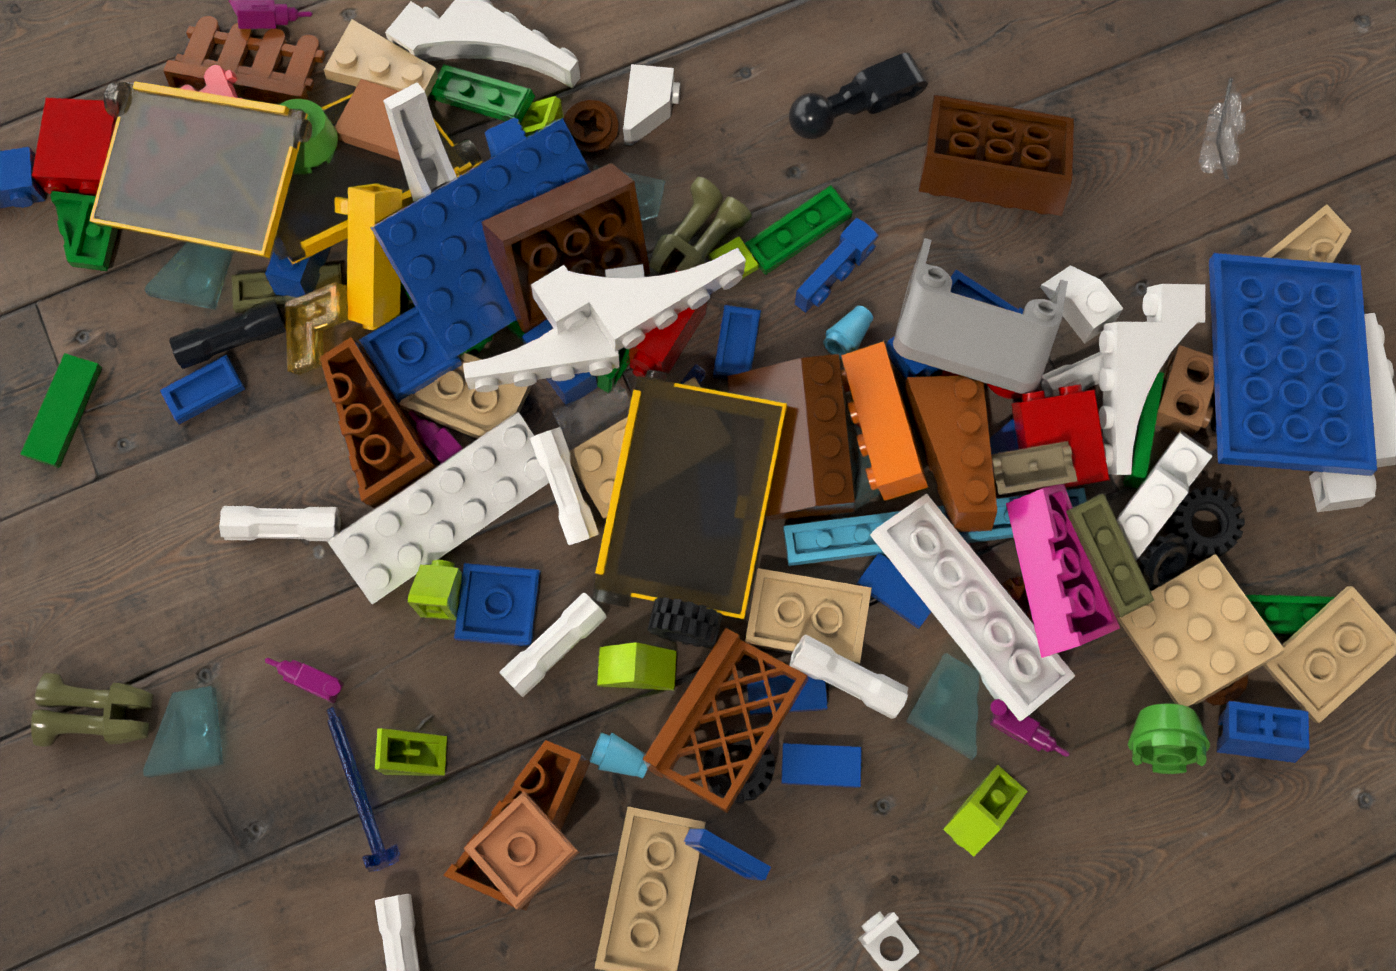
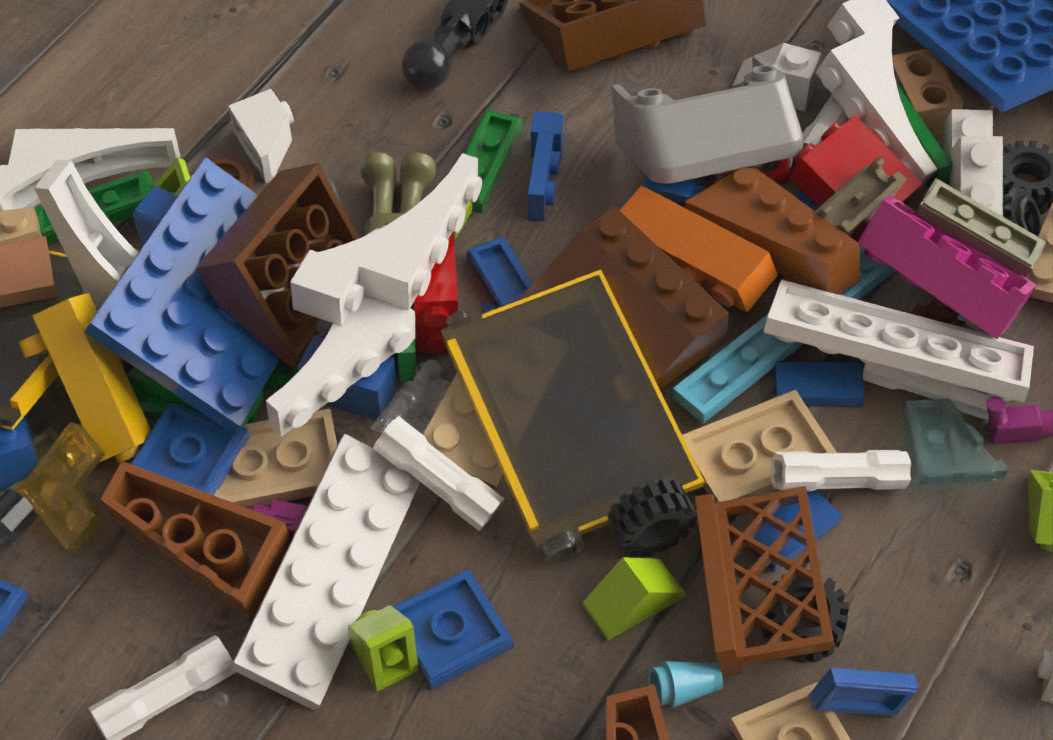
camera: 35 degrees left, 20 degrees down
(532, 664) = (530, 654): white axle -> none
(821, 765) = (878, 569): blue tile -> none
(848, 332) = (596, 201): medium azure cone -> none

